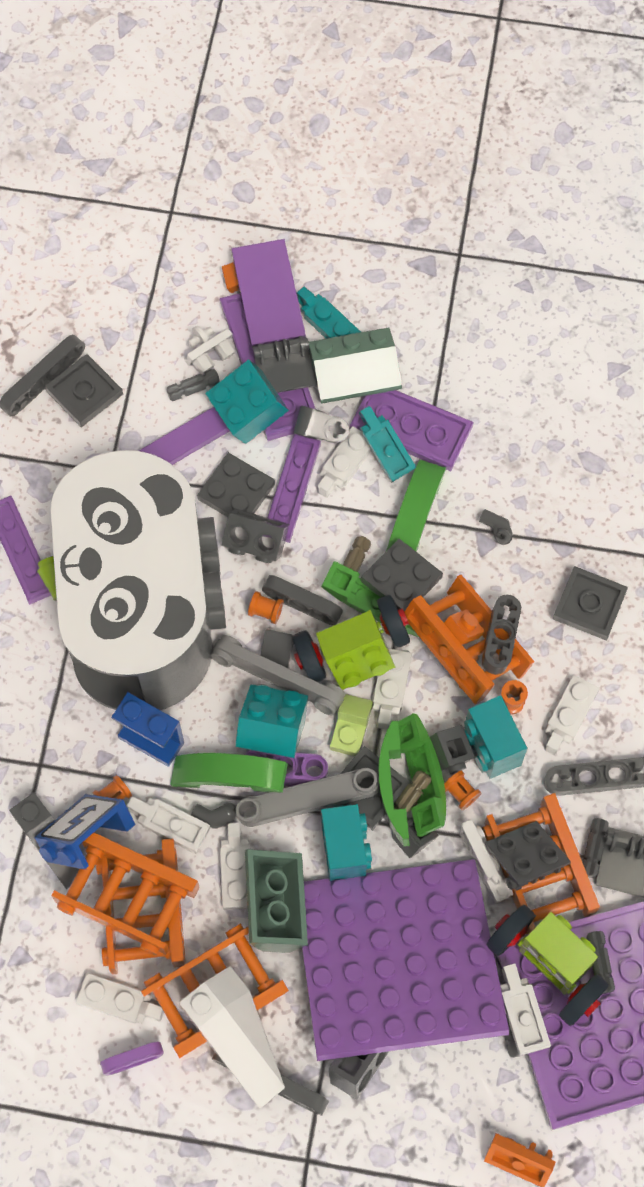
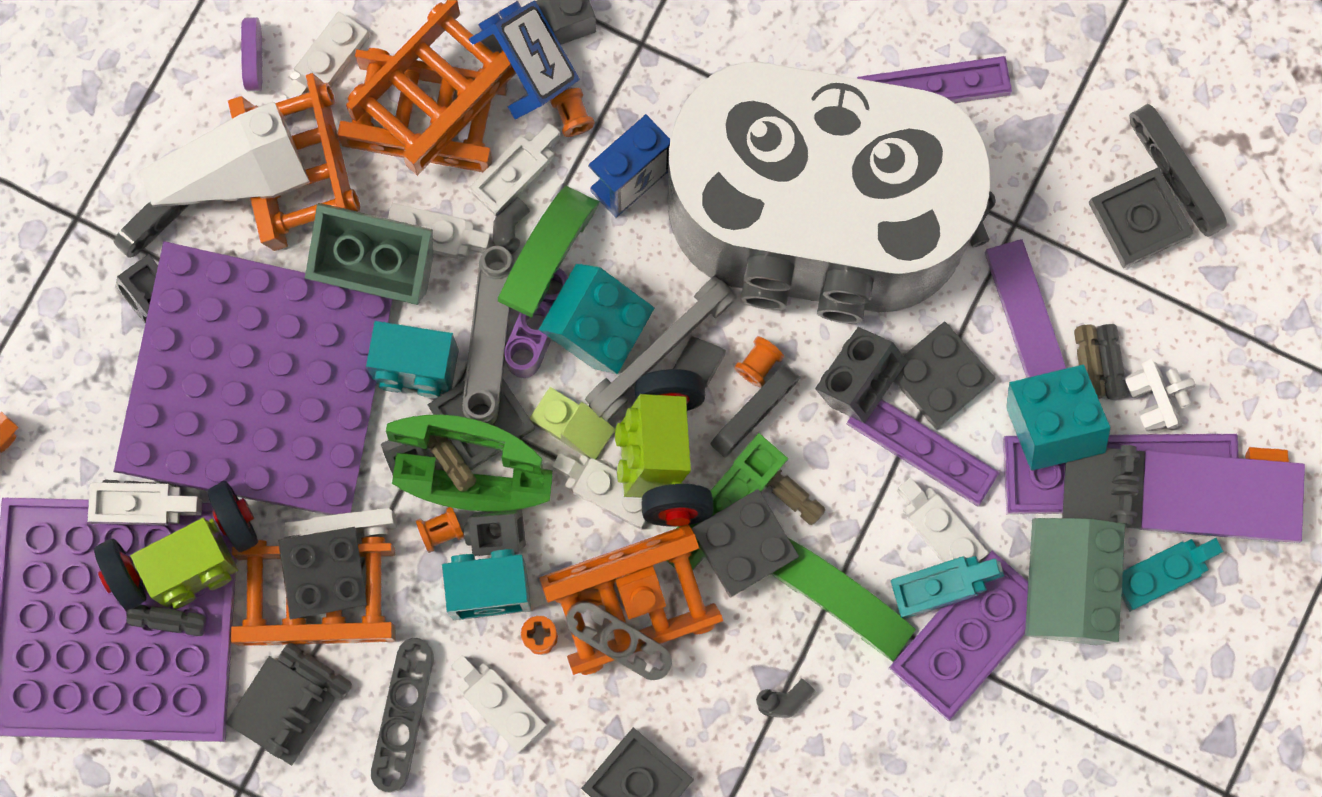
camera: 105 degrees right, 10 degrees up
(191, 400) = (1090, 356): none -> dark tan axle
(316, 424) = (998, 503): piece -> none

